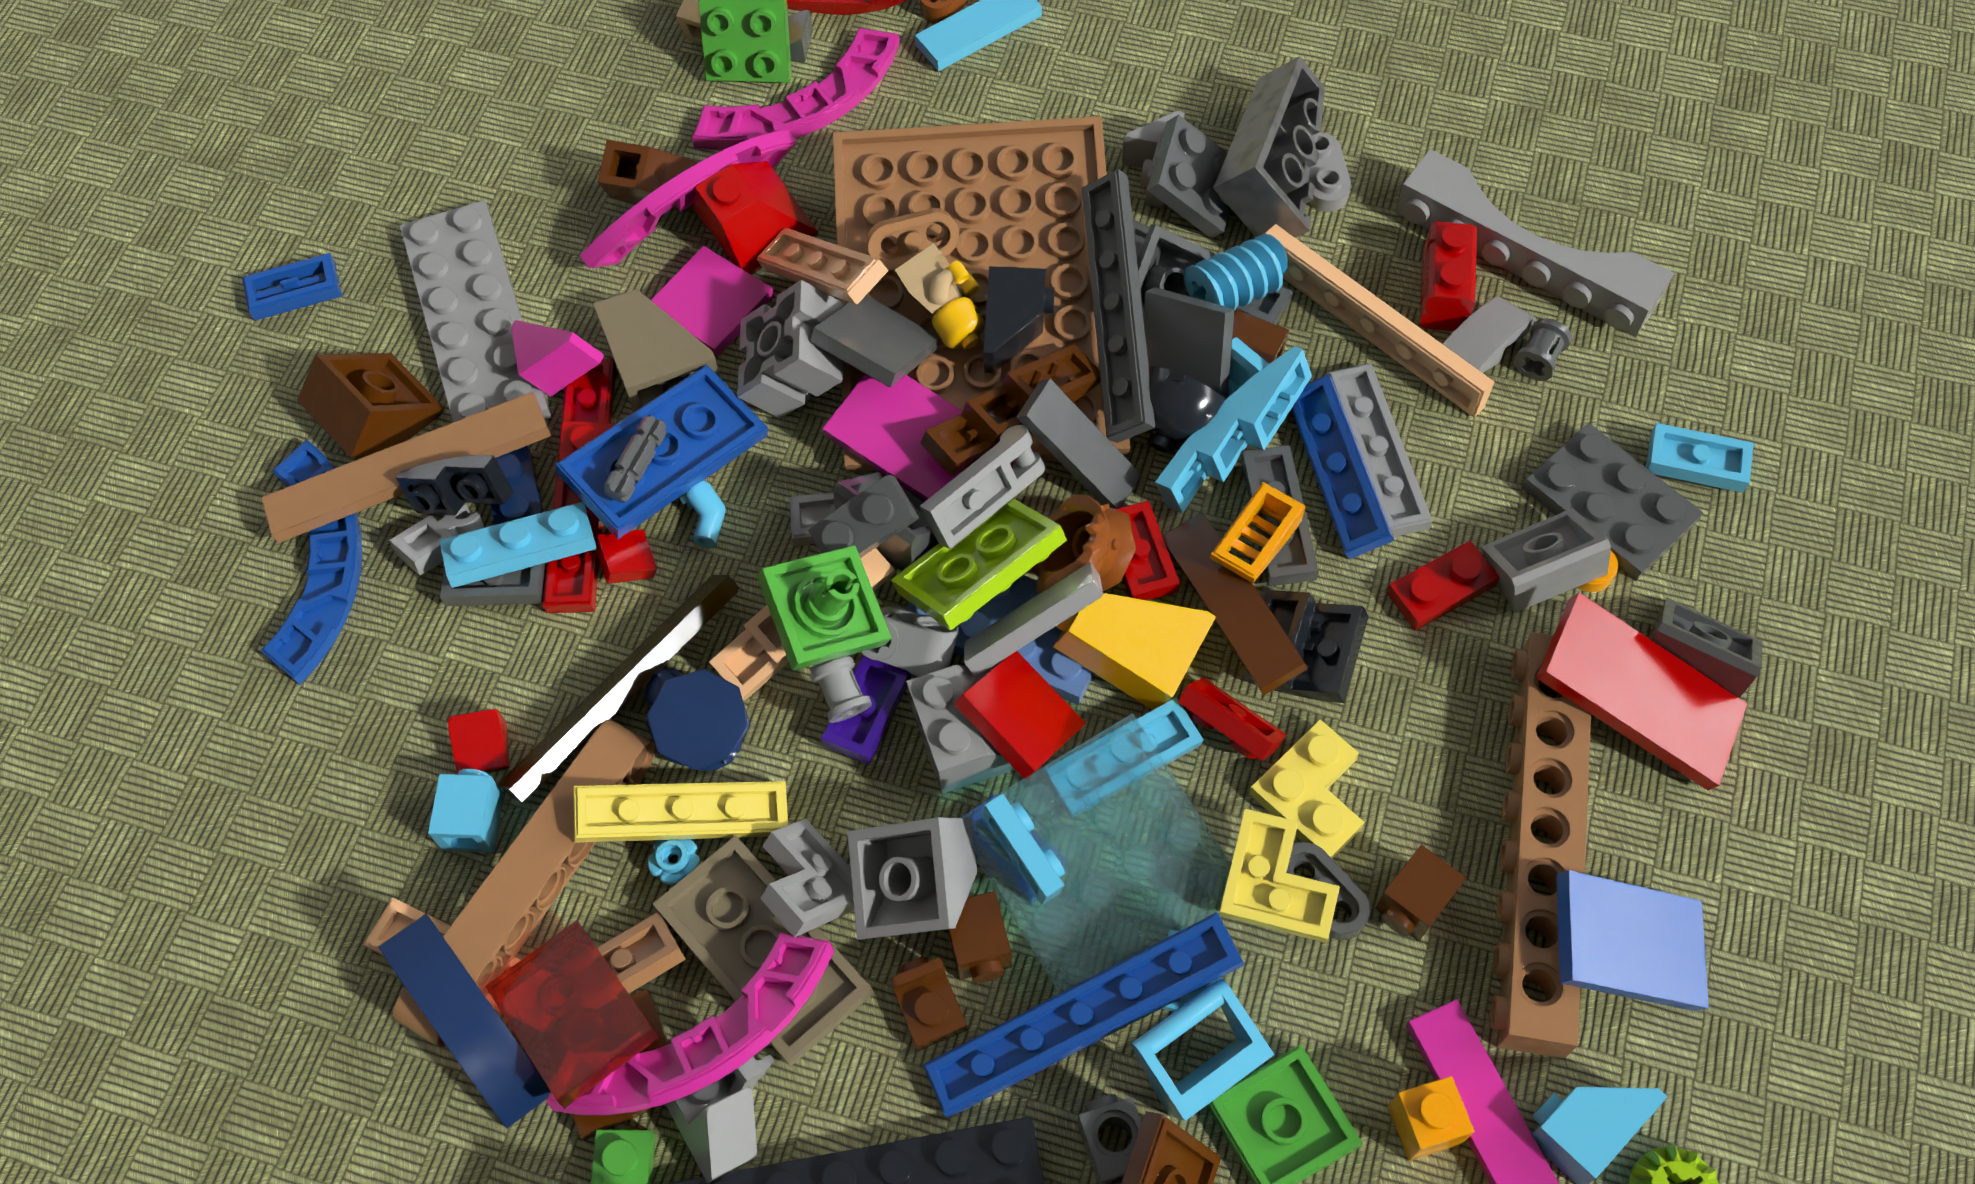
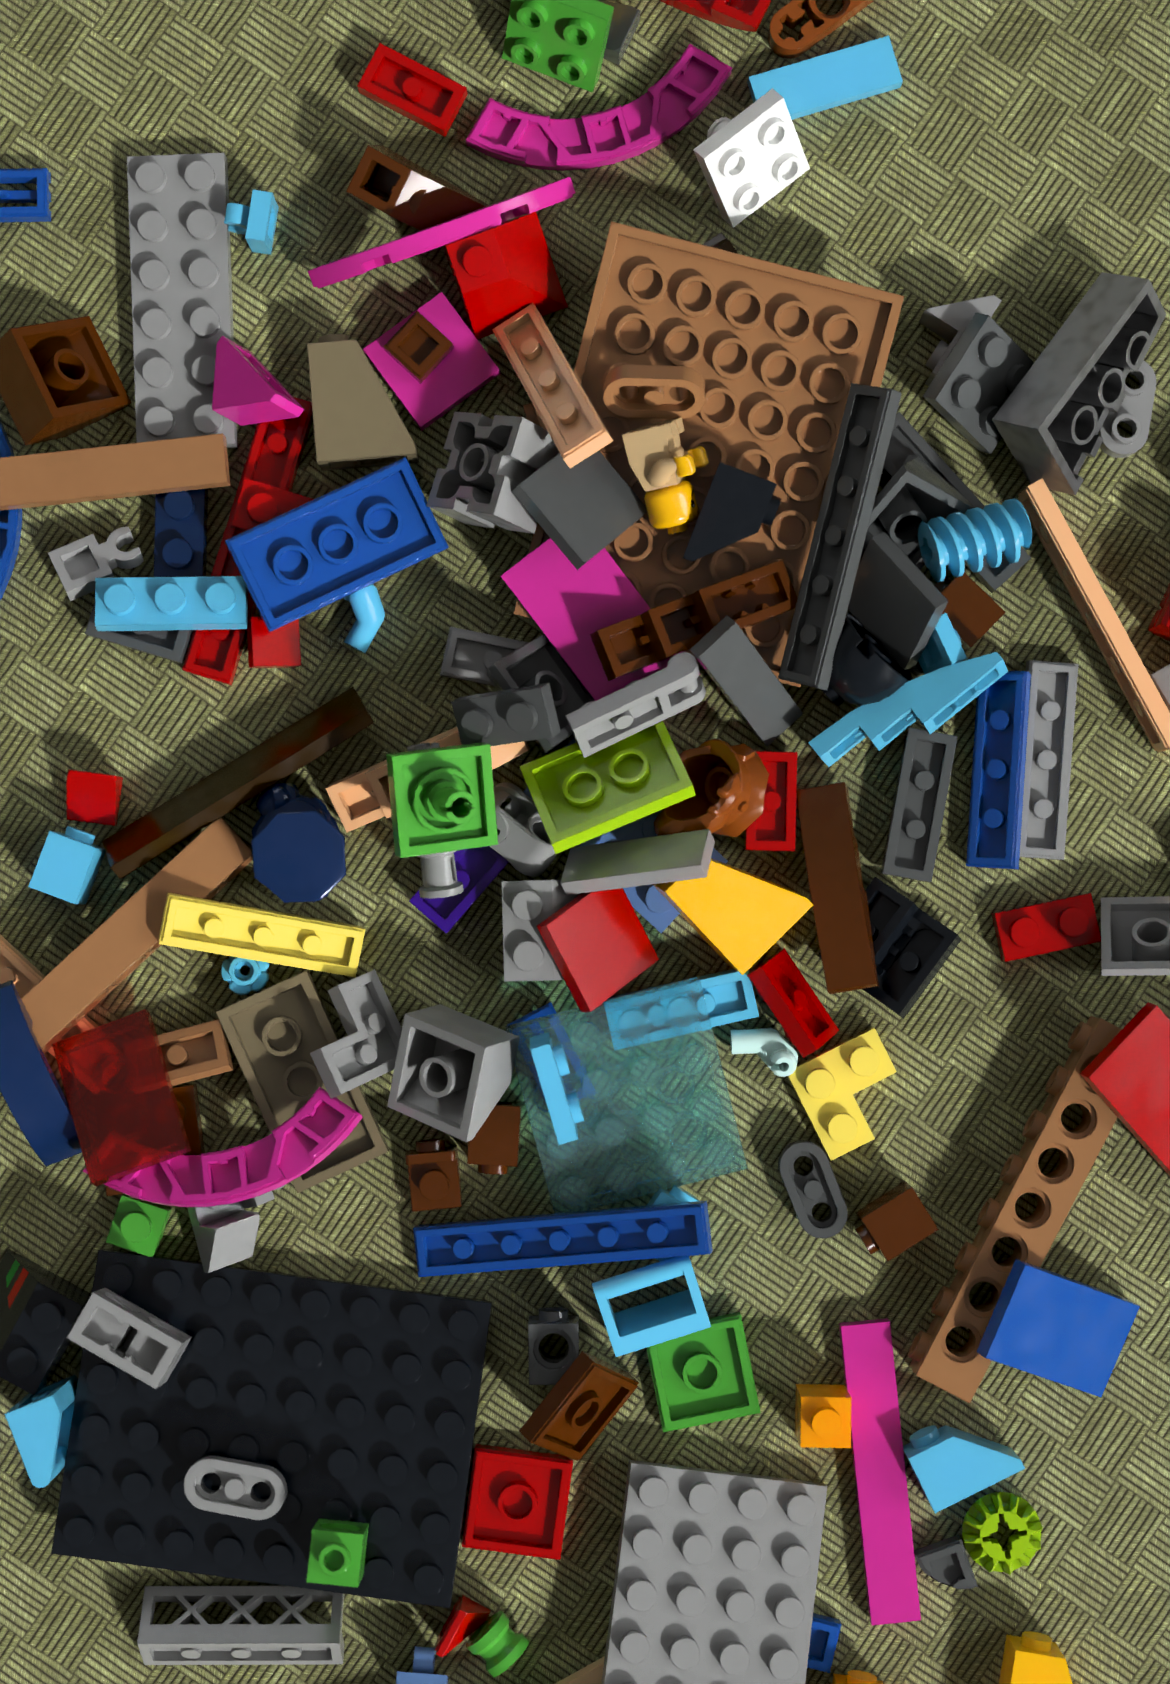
camera: 15 degrees right, 25 degrees up
(450, 483) = (117, 516): black slope -> none
(523, 238) = (256, 221): none -> medium azure tile
(635, 459) = (305, 560): dark grey axle -> none
(636, 116) = (412, 89): none -> red plate
(694, 287) = (418, 347): none -> reddish brown tile
(937, 74) = (751, 157): none -> white plate
(1223, 769) = (769, 1046): none -> light aqua arm
(1263, 891) = (756, 1179): light yellow plate -> none
(1274, 505) = (914, 809): light orange slope -> none

